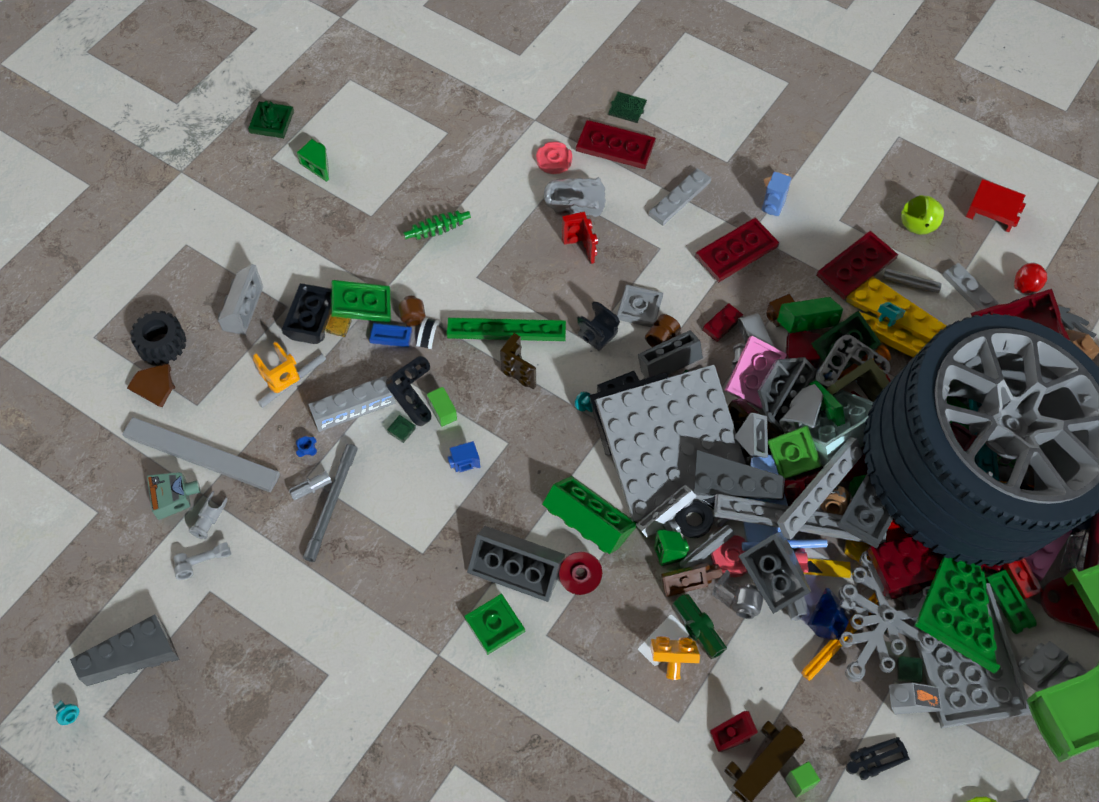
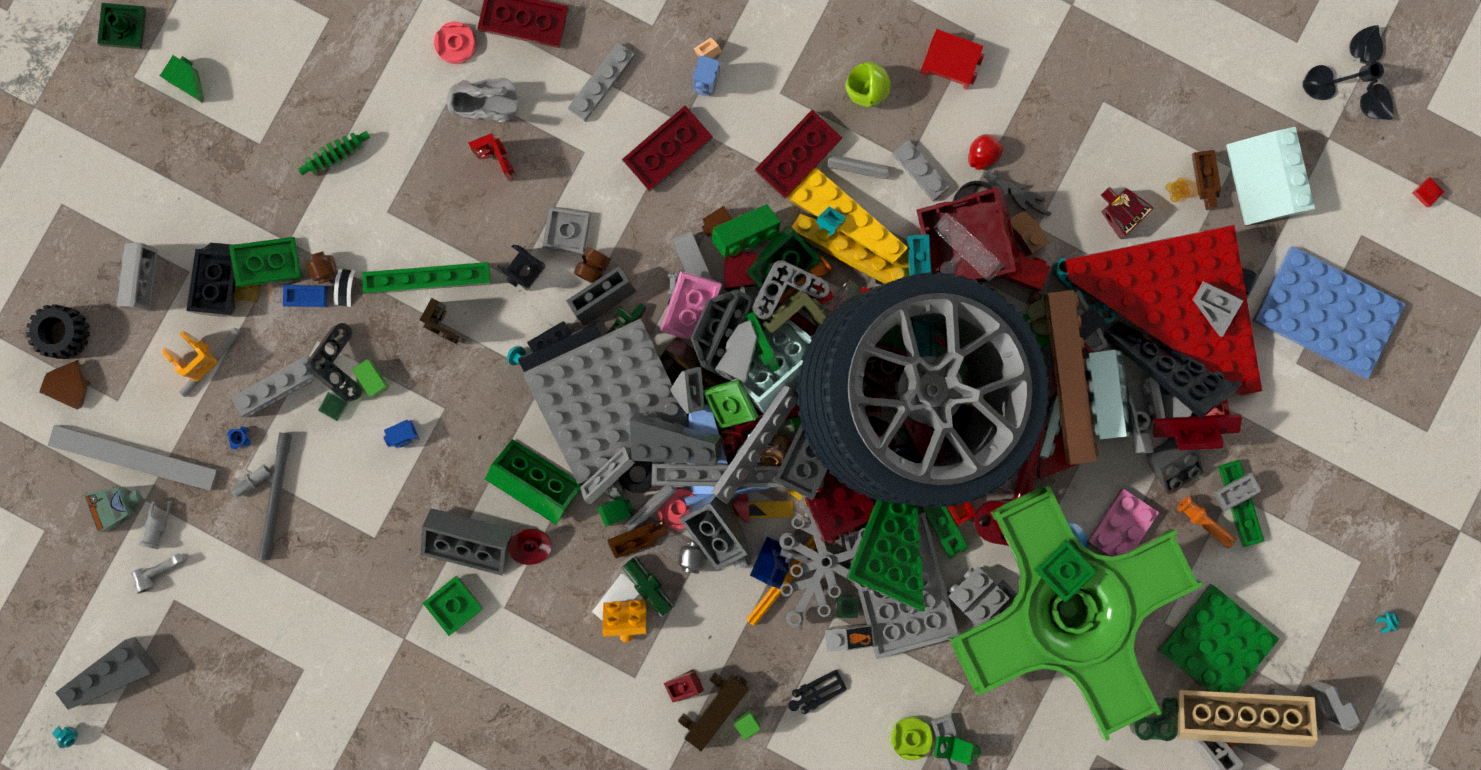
camera: 10 degrees left, 25 degrees up
(722, 322) = (656, 241): dark red plate -> none

